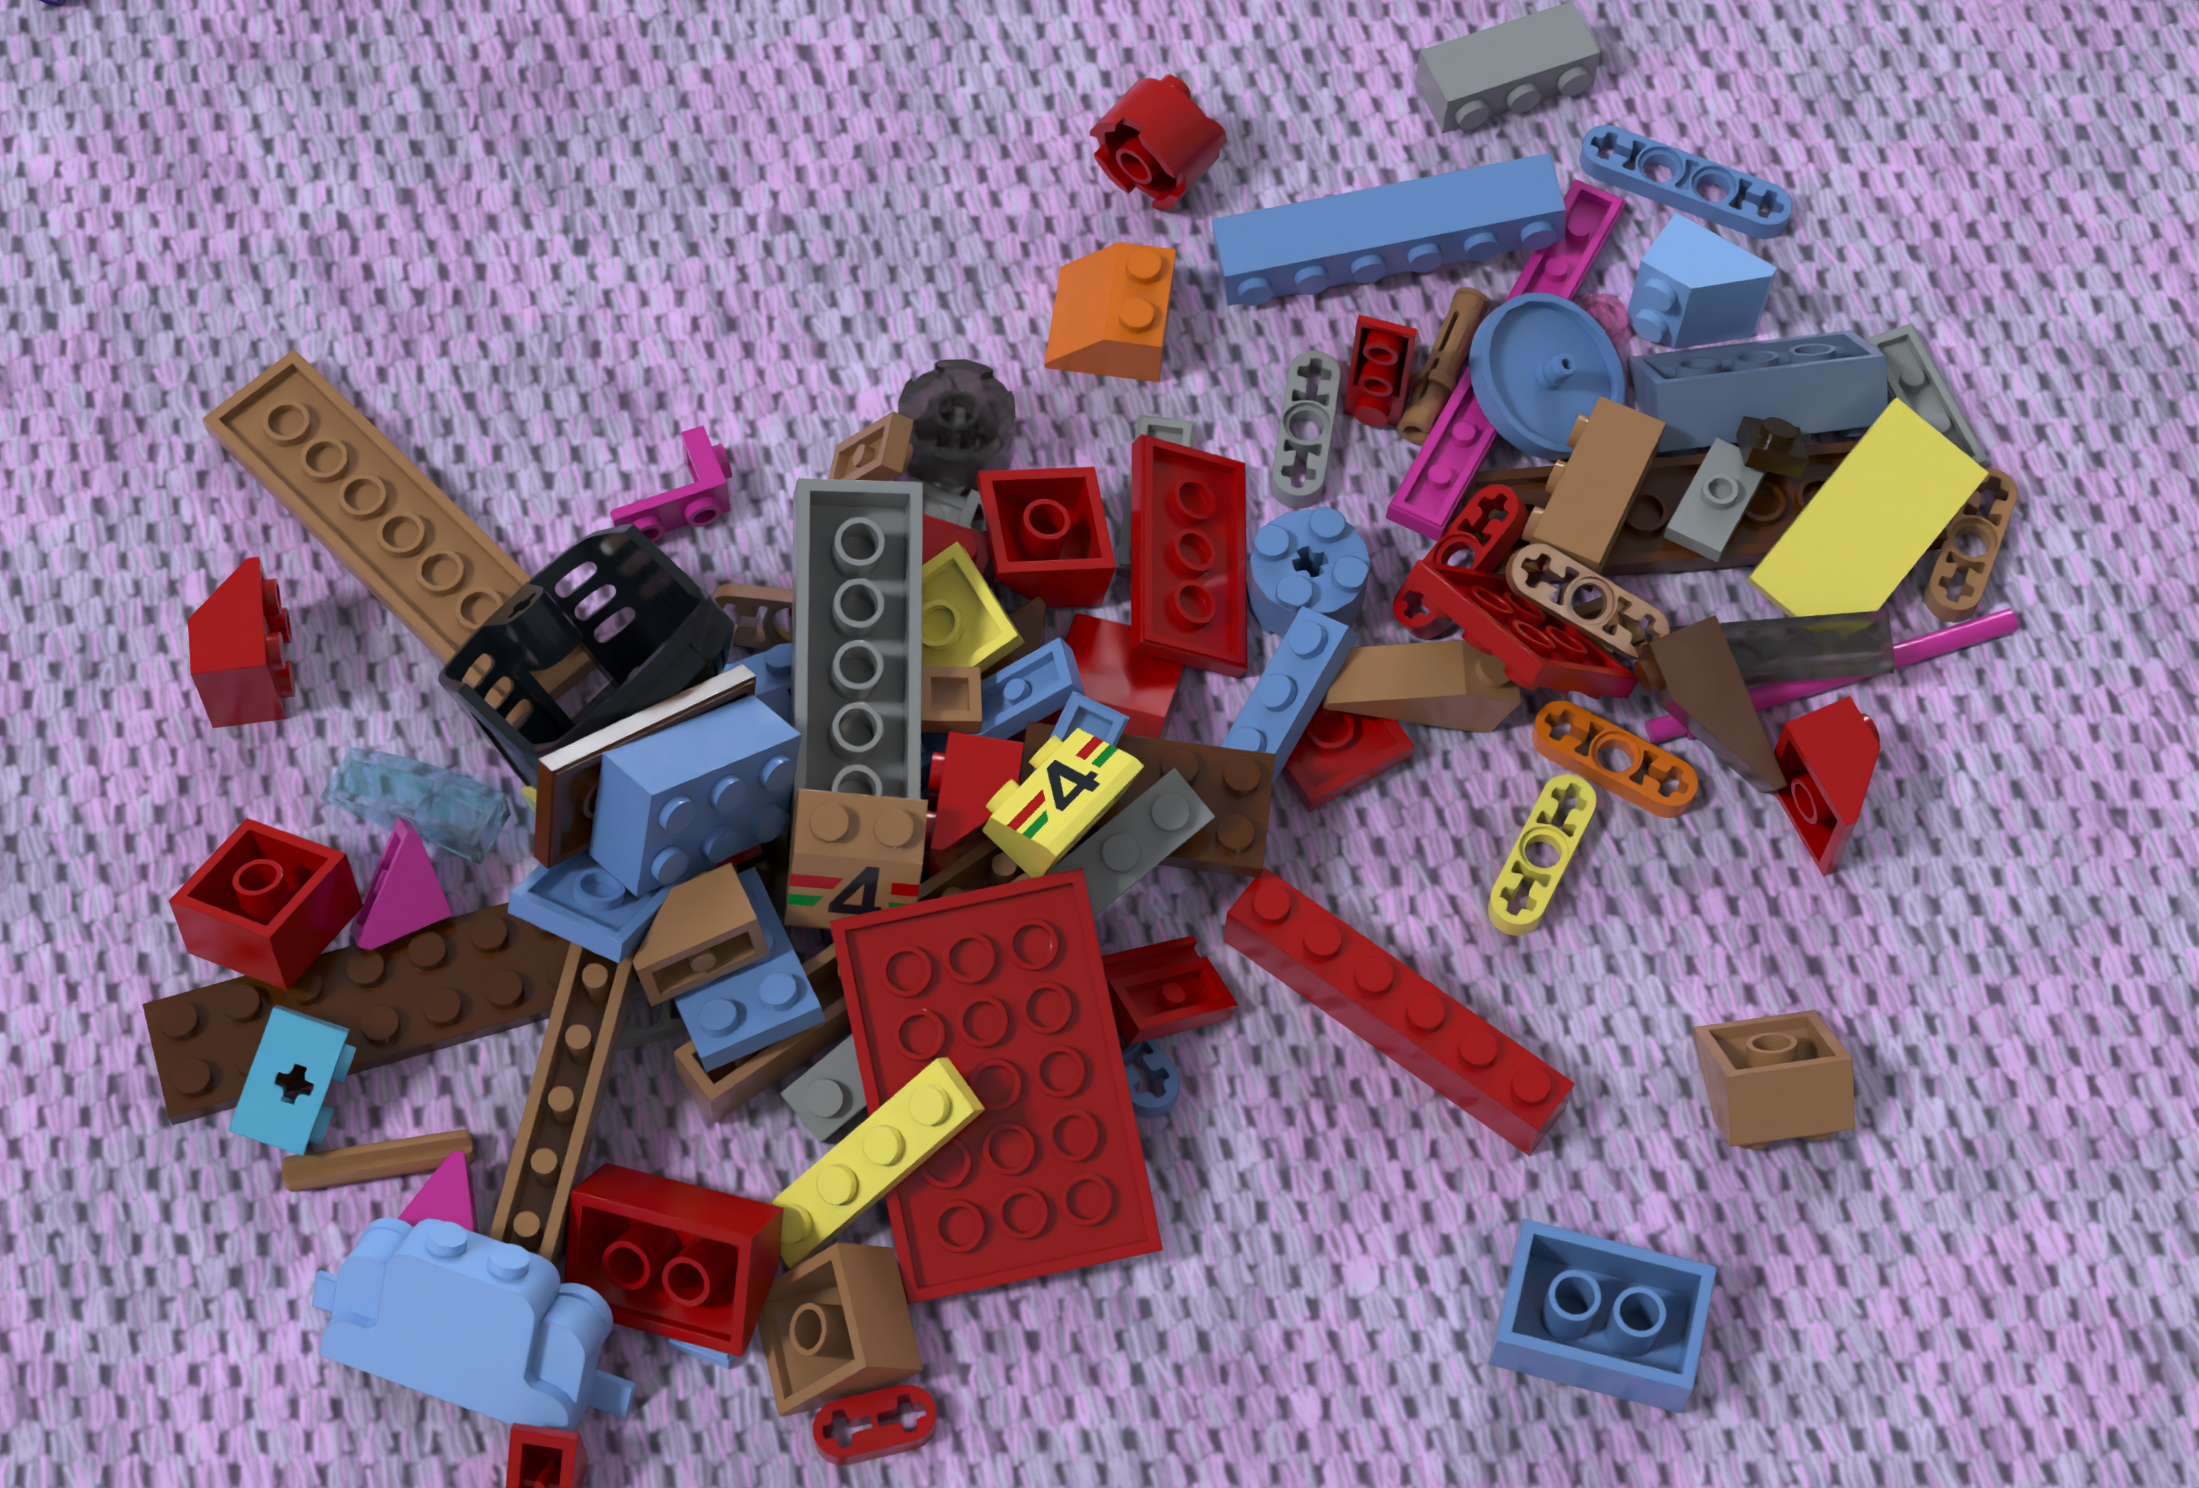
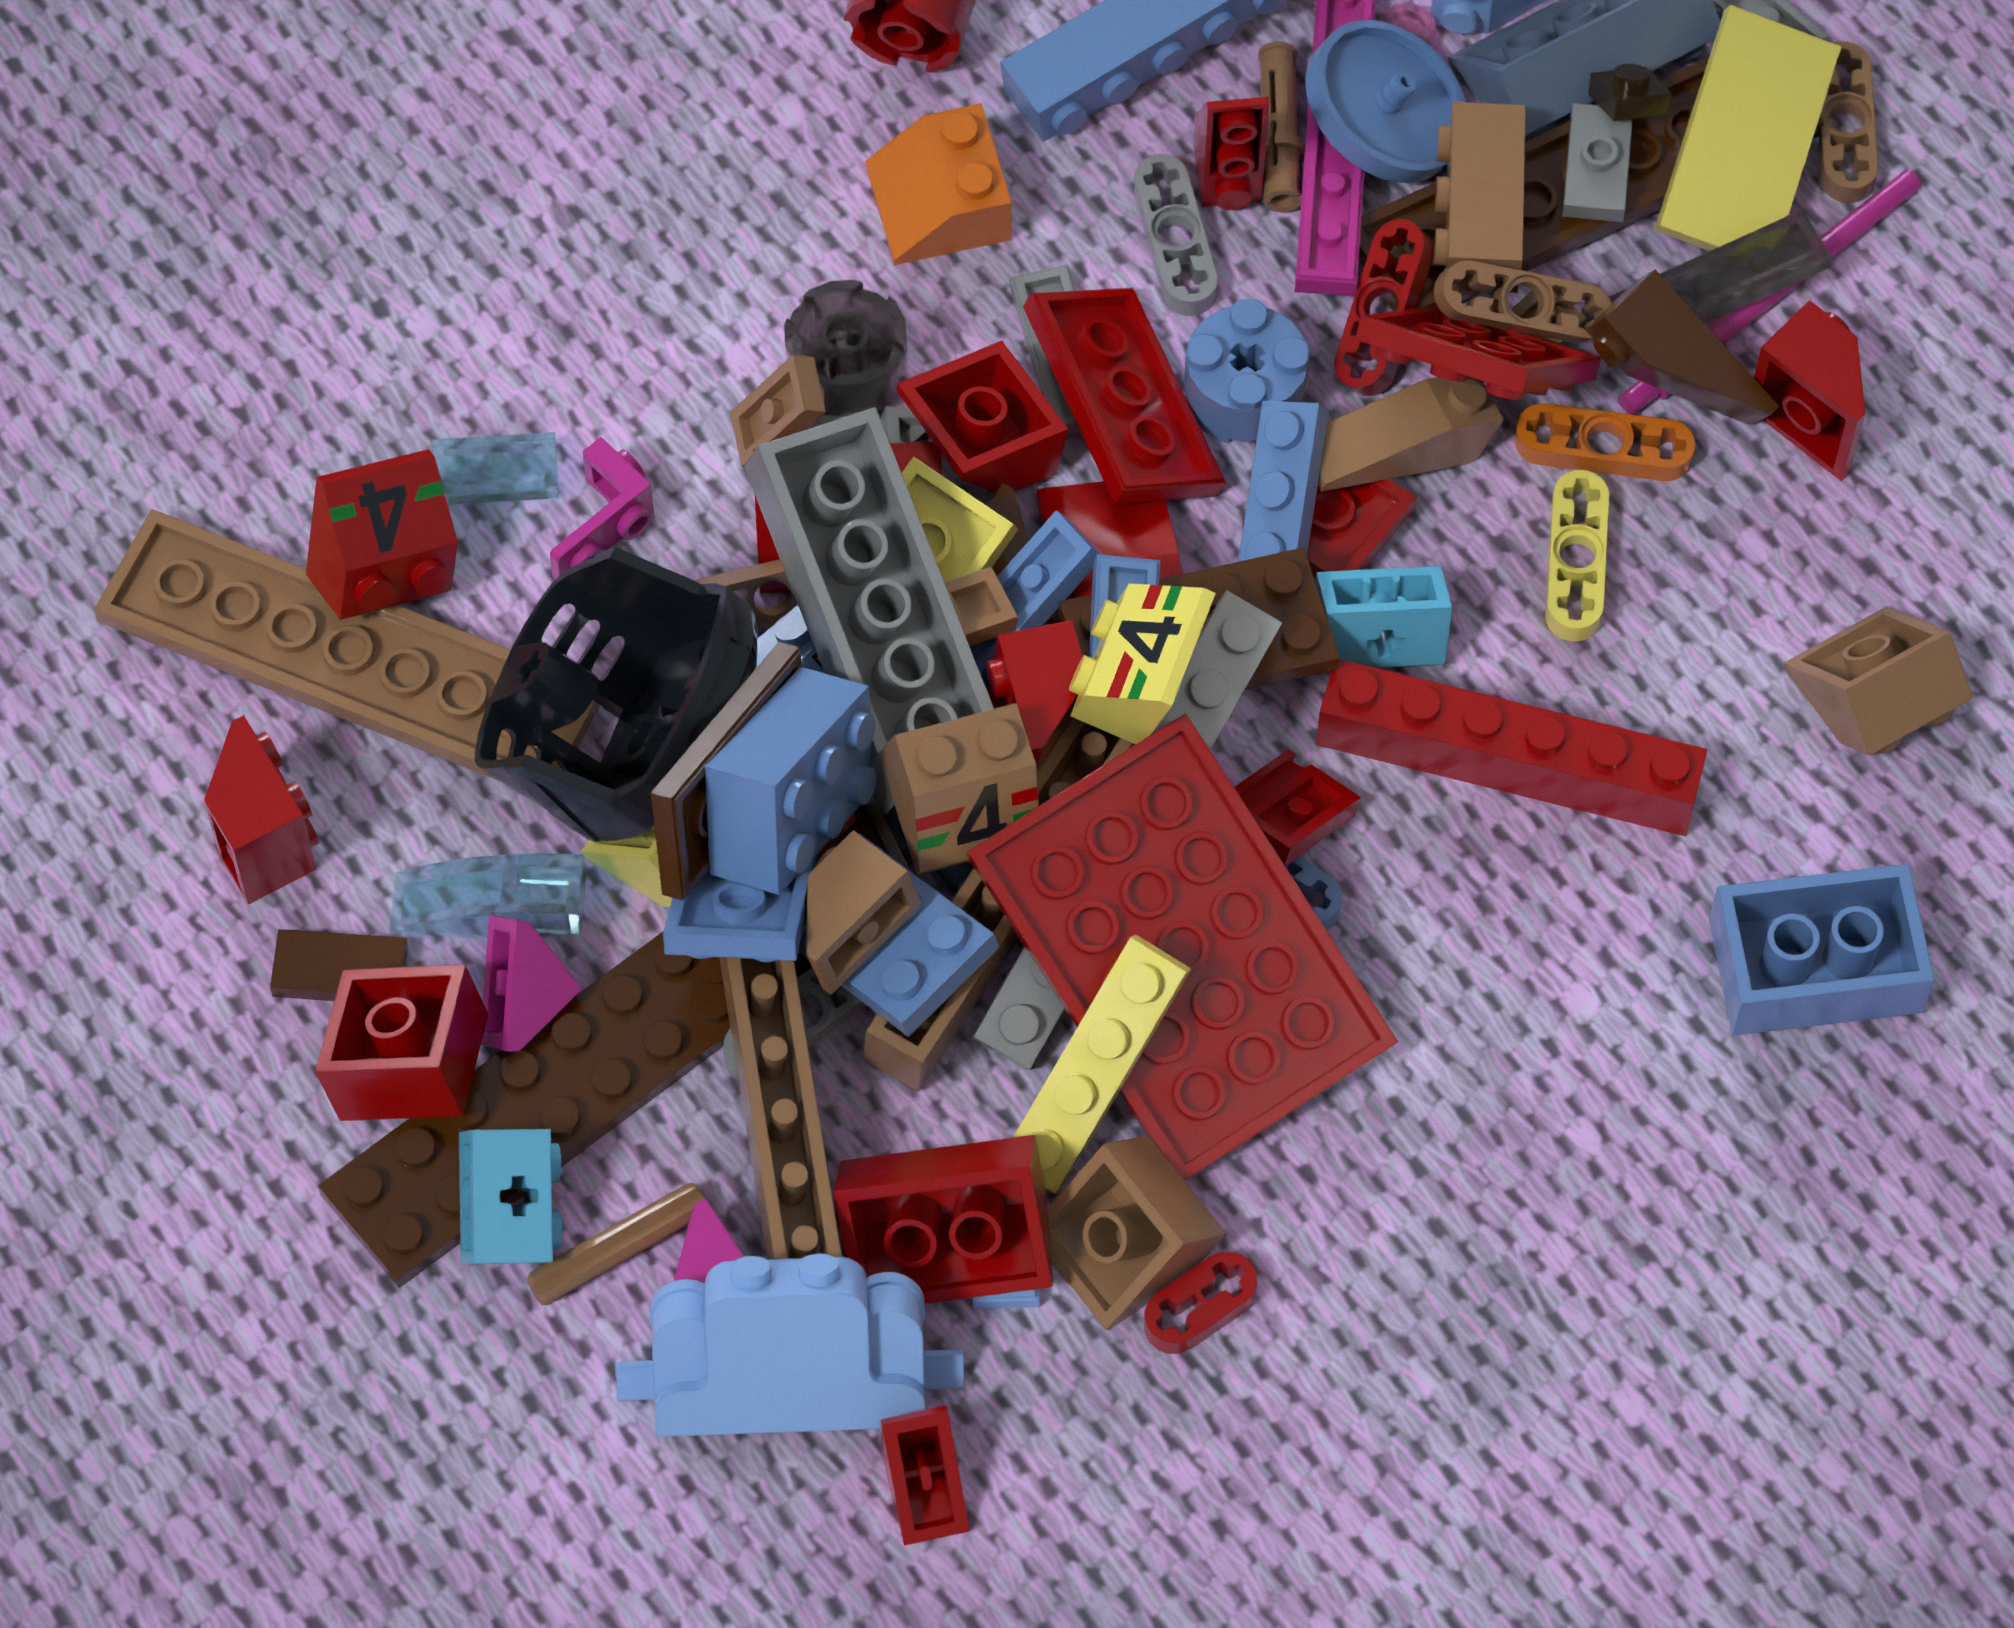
camera: 20 degrees left, 0 degrees up
(237, 795) = (312, 962): none -> reddish brown tile
(467, 442) = (381, 535): none -> red slope
(606, 421) = (498, 468): none -> clear light blue plate
(1330, 845) = (1388, 615): none -> medium azure brick

